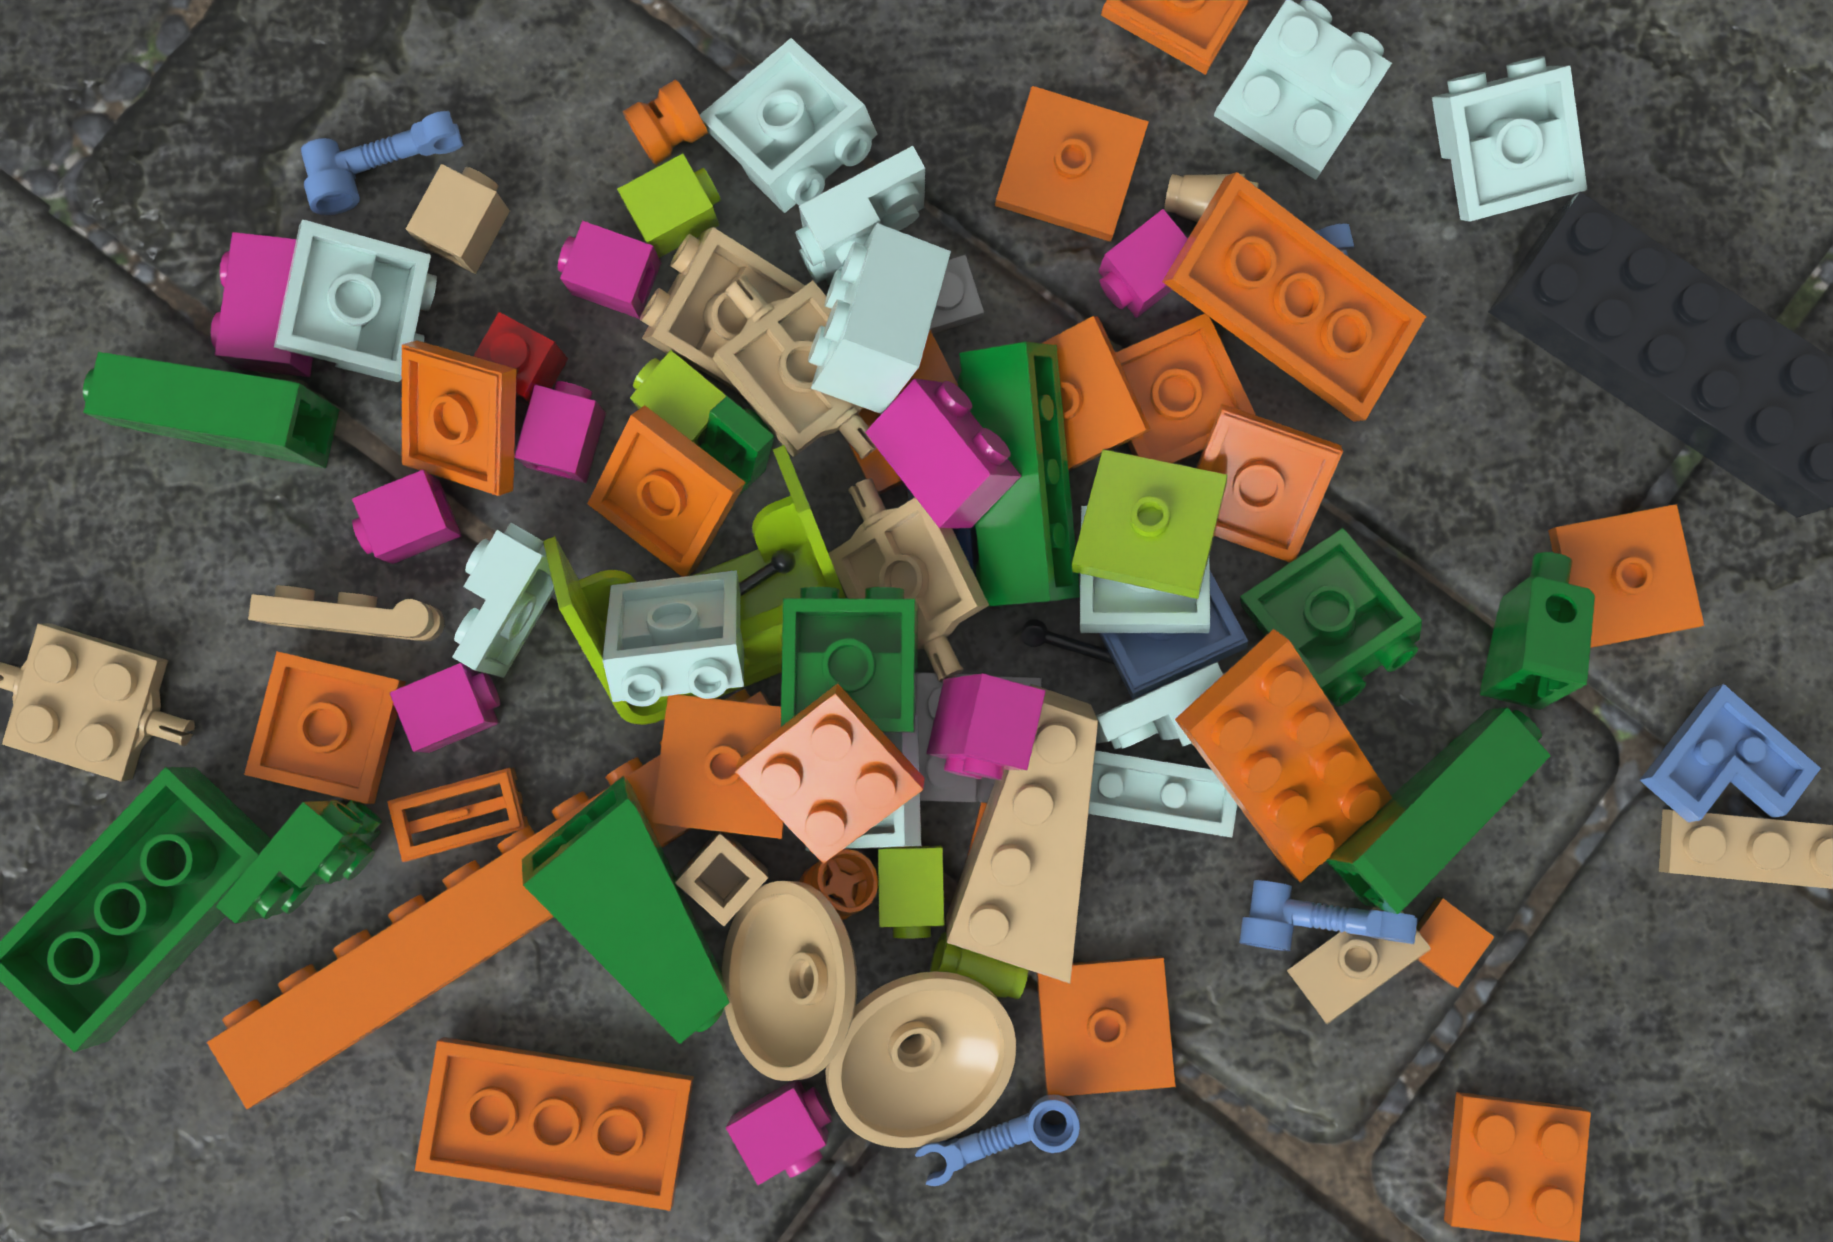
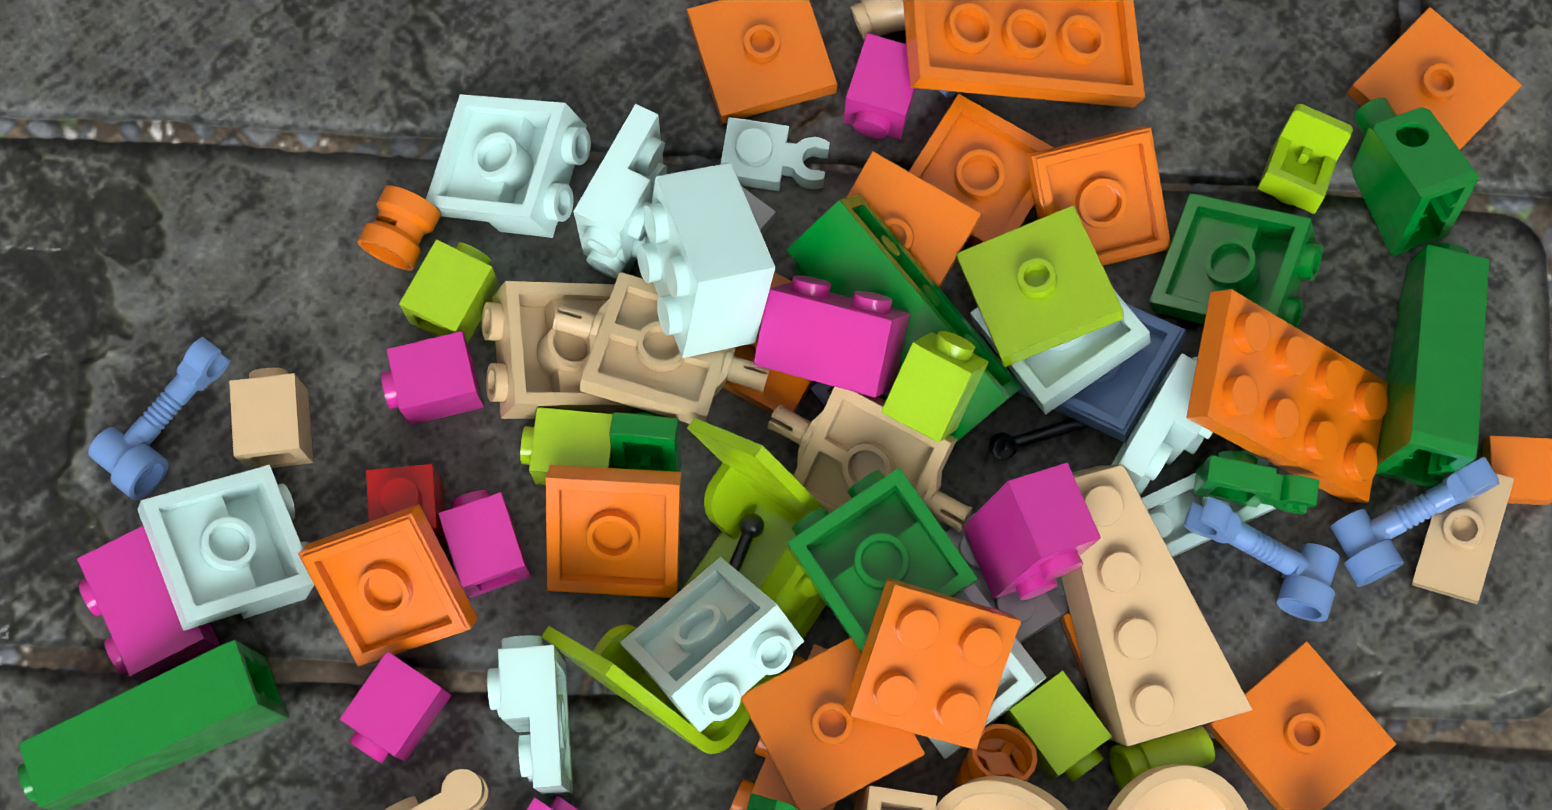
camera: 35 degrees left, 10 degrees down
(996, 550) = (935, 384): none -> lime brick
(1008, 254) = (763, 155): none -> light aqua plate
(1198, 793) = (1239, 480): none -> green plate
(1203, 905) = (1306, 573): none -> medium blue brick
(1462, 564) = (1304, 158): none -> lime bracket

